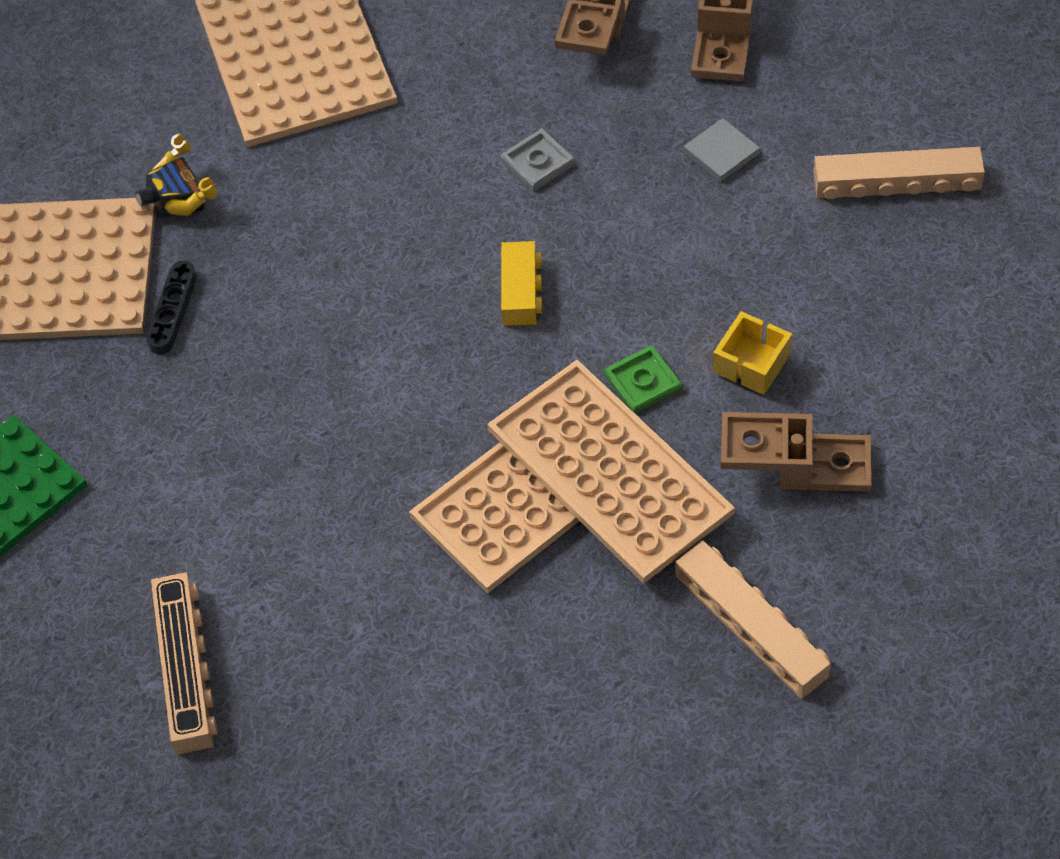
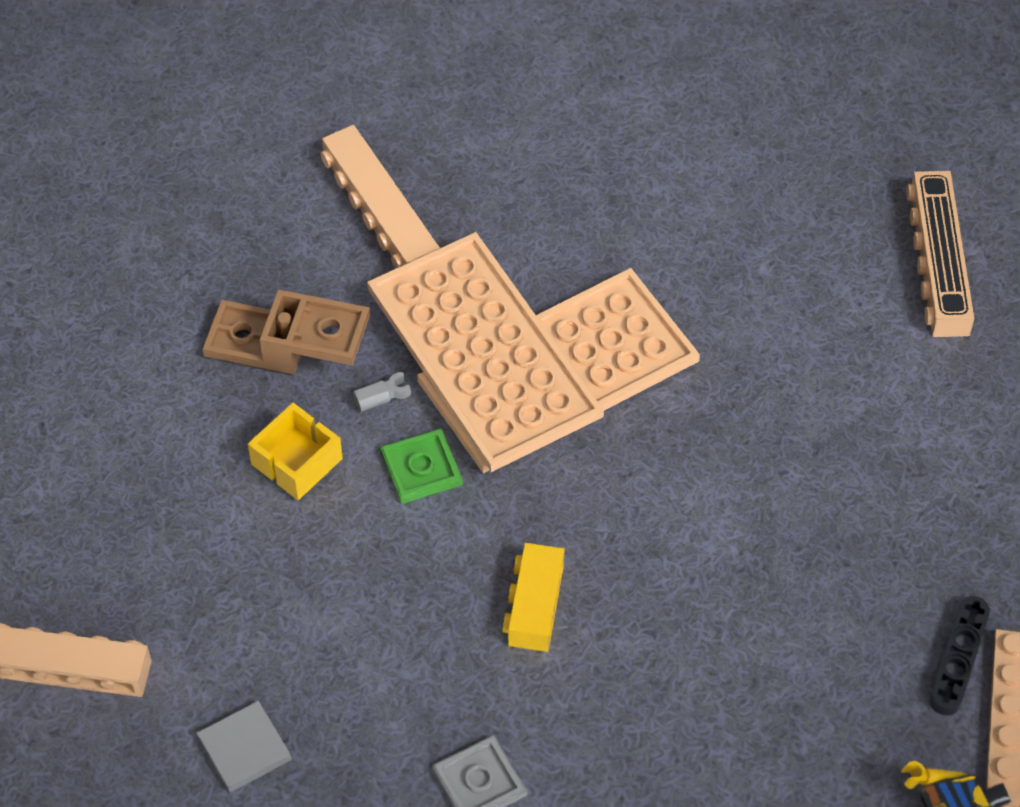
camera: 175 degrees left, 0 degrees up
(696, 433) = (381, 392): none -> light grey bar

